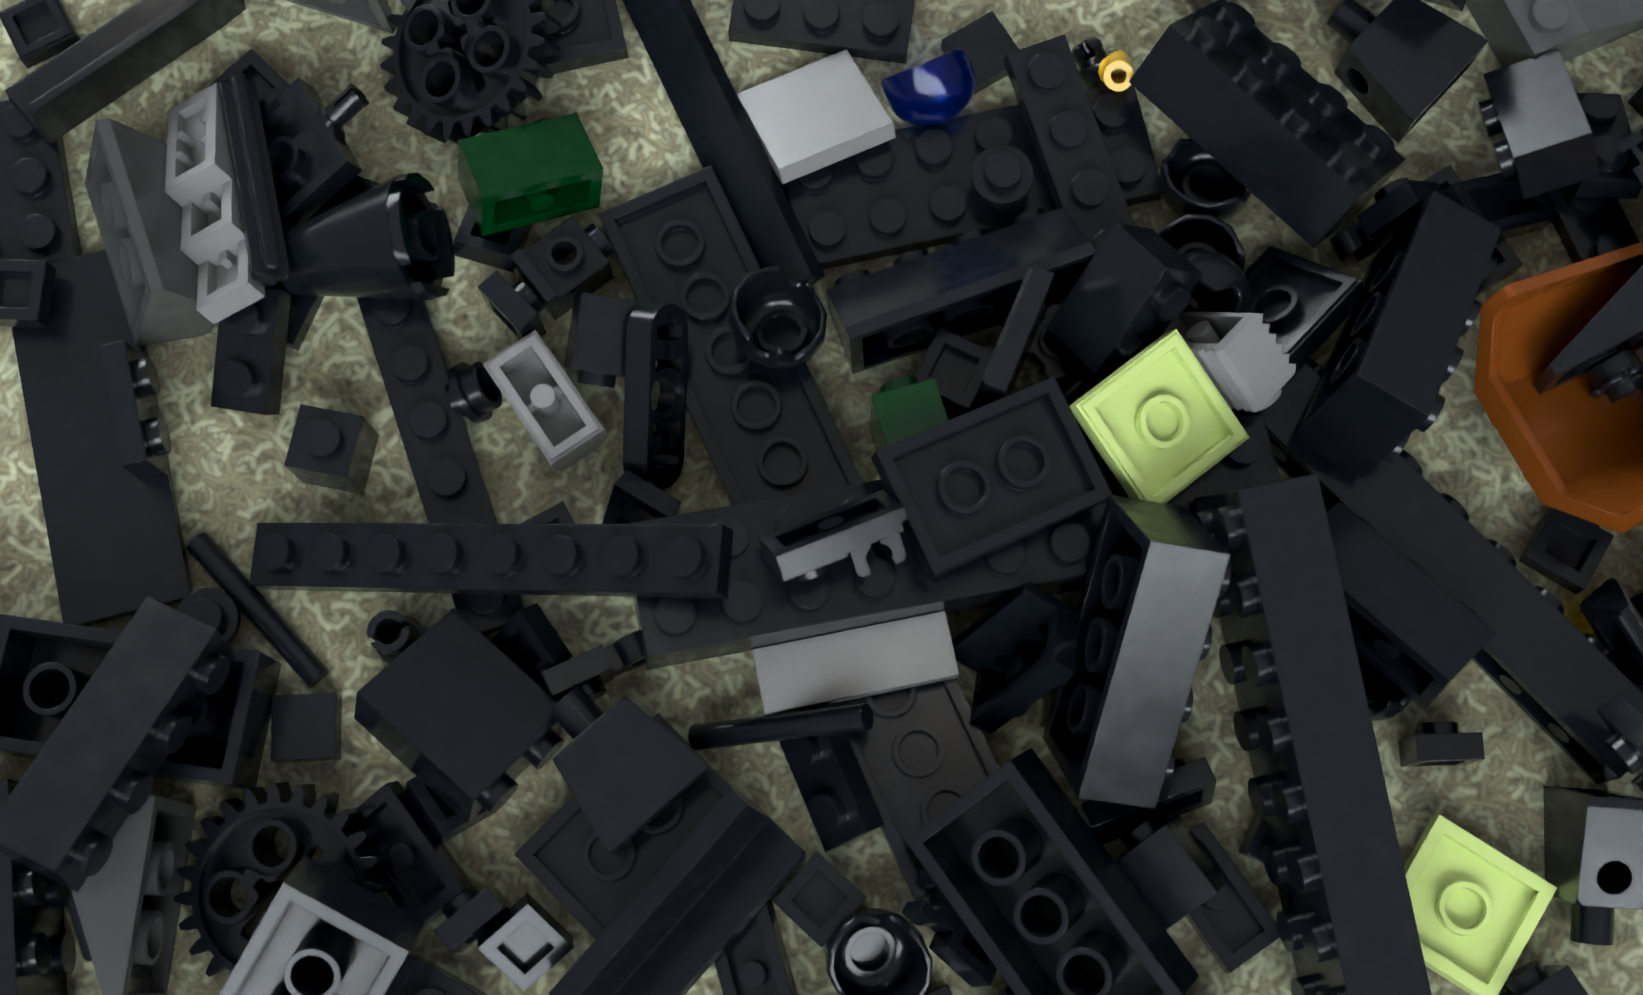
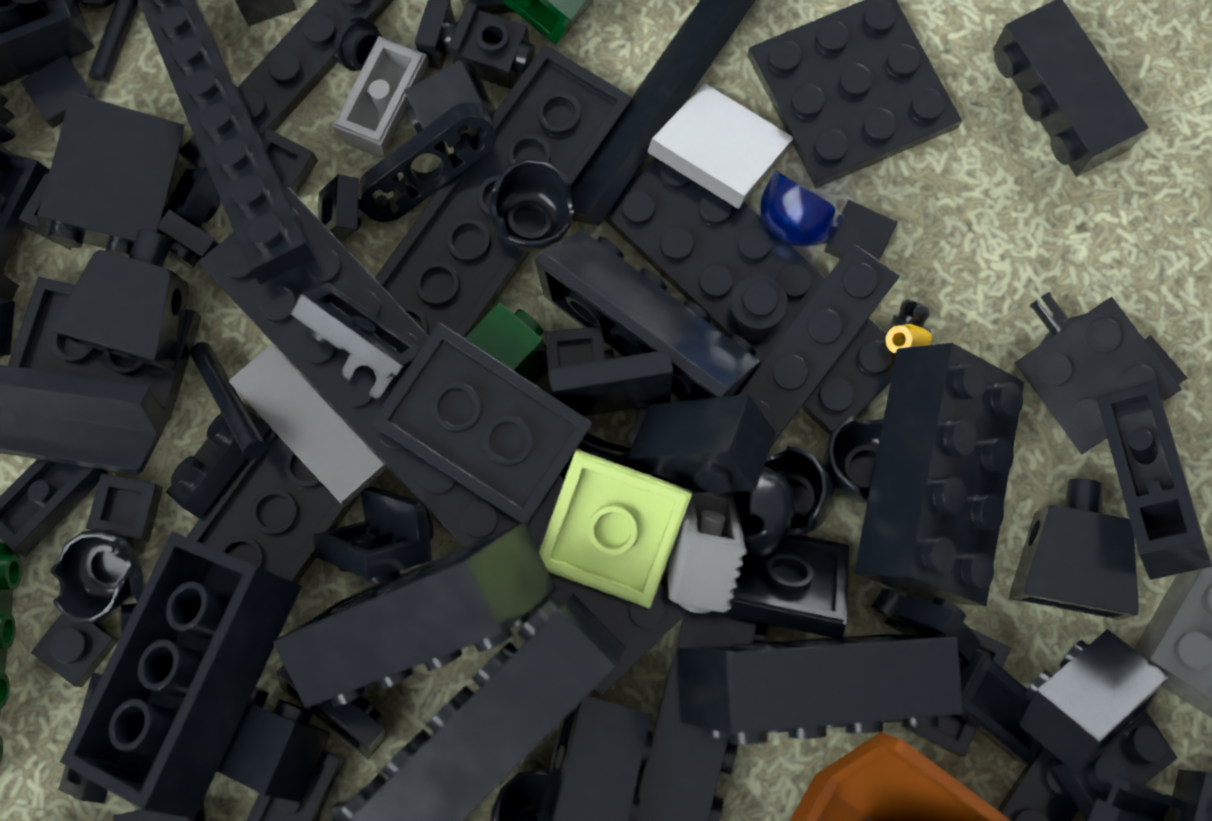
camera: 60 degrees right, 0 degrees up
(385, 626) = (147, 98): black pin -> none

